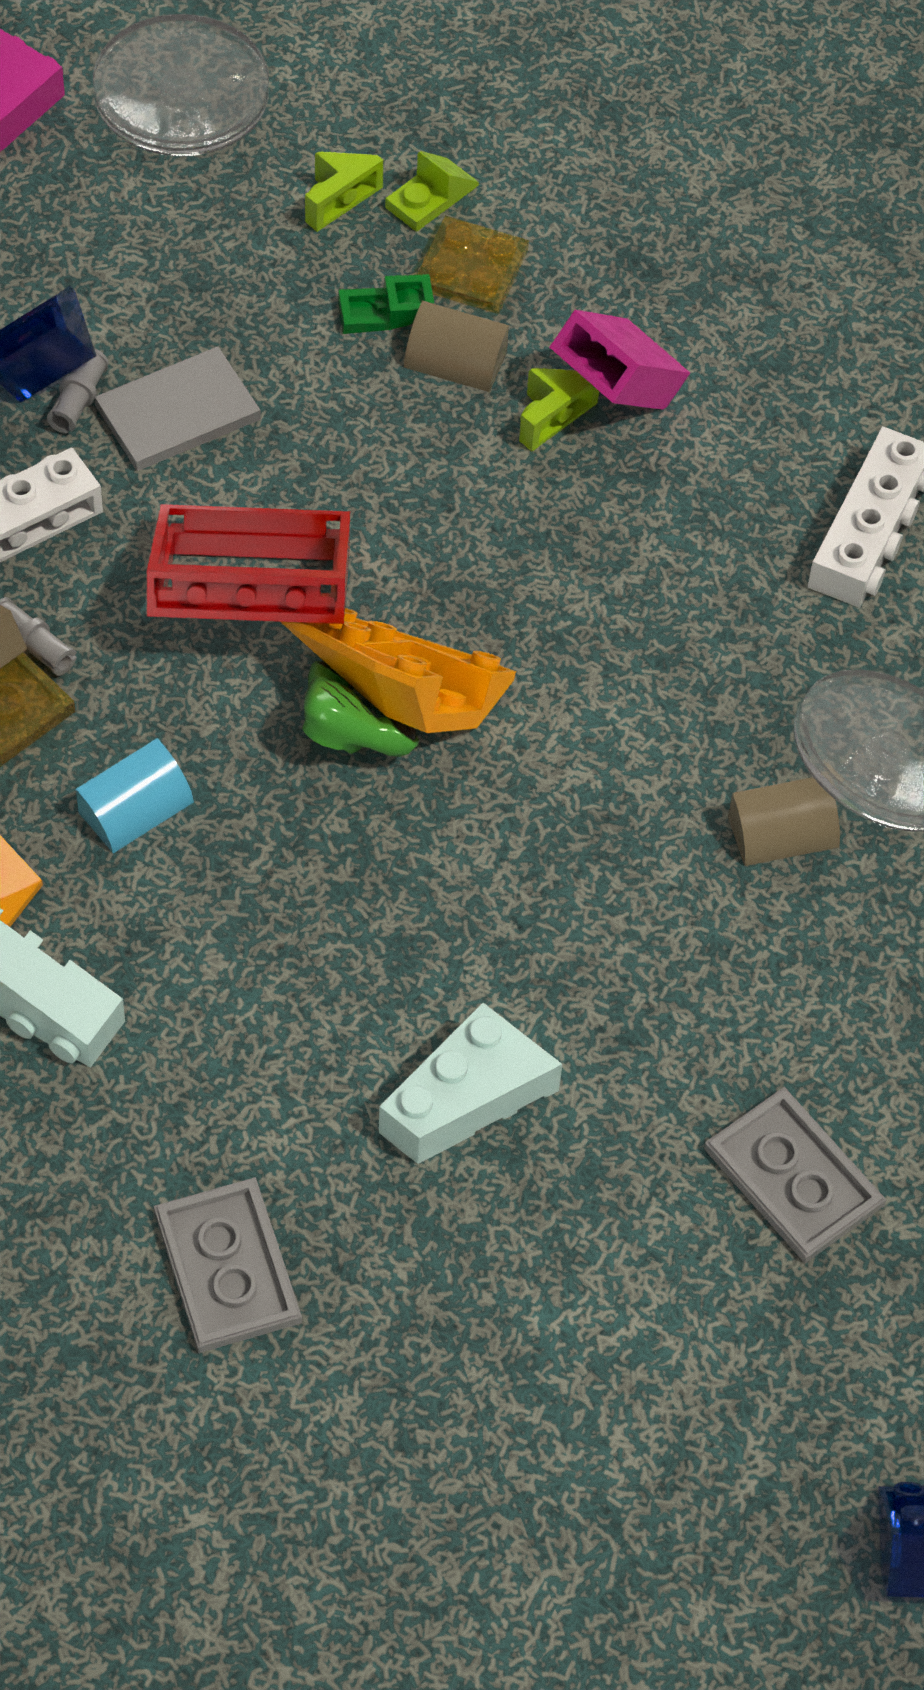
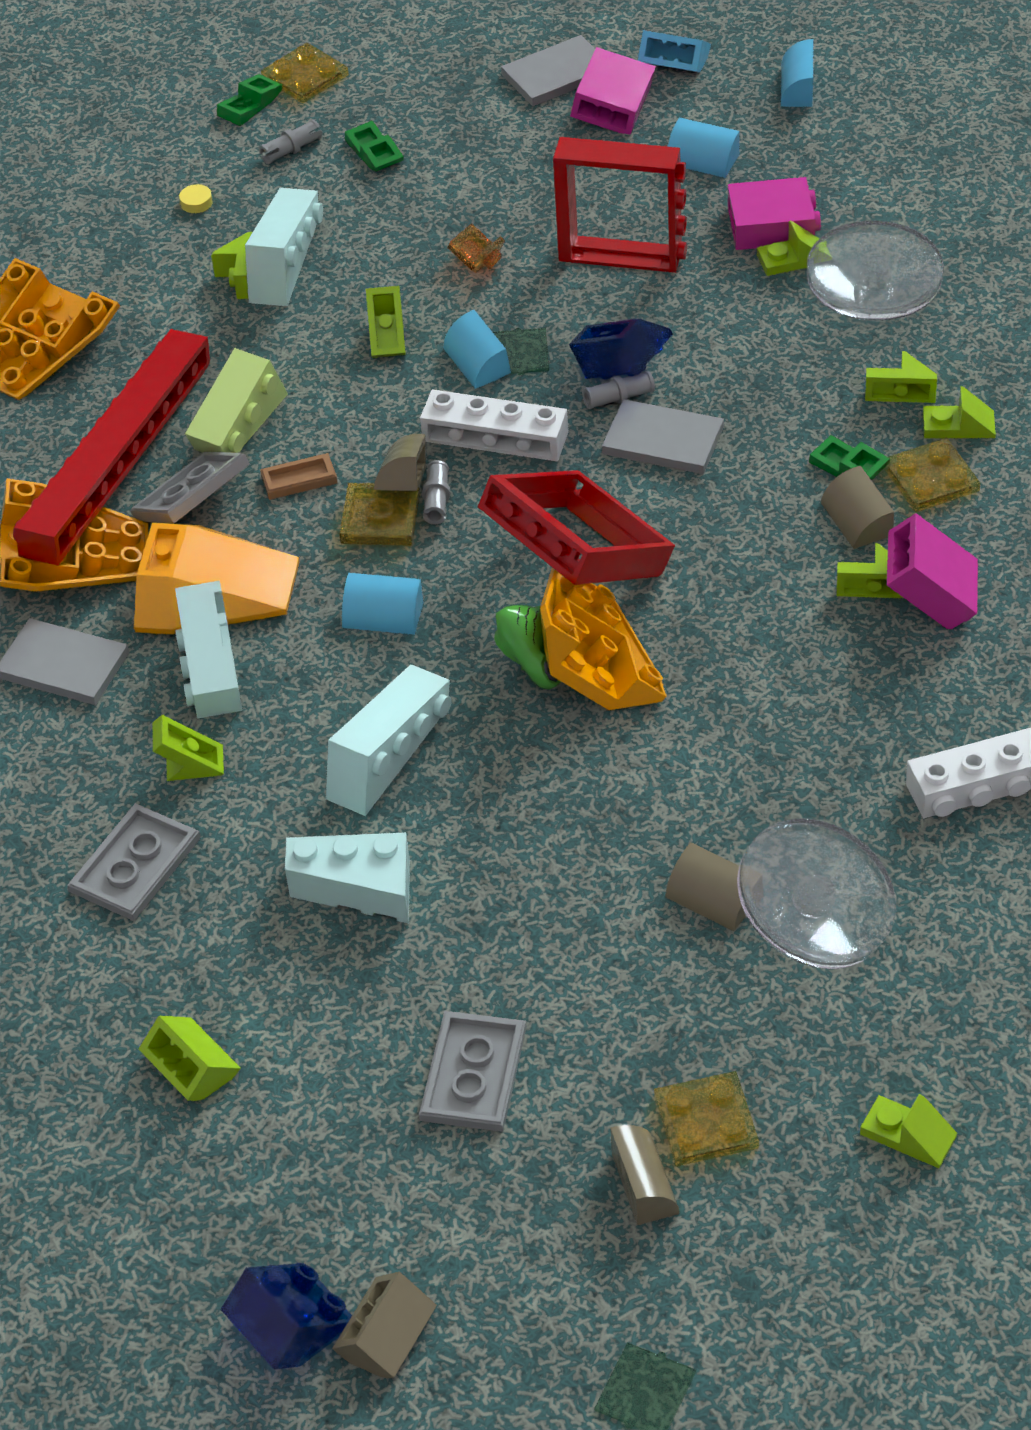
camera: 55 degrees right, 10 degrees down
(62, 124) = (787, 255): none -> lime slope
(143, 1110) = (186, 751): none -> lime slope
(326, 926) = (383, 737): none -> light aqua wedge
(542, 1402) = (188, 1057): none -> lime brick

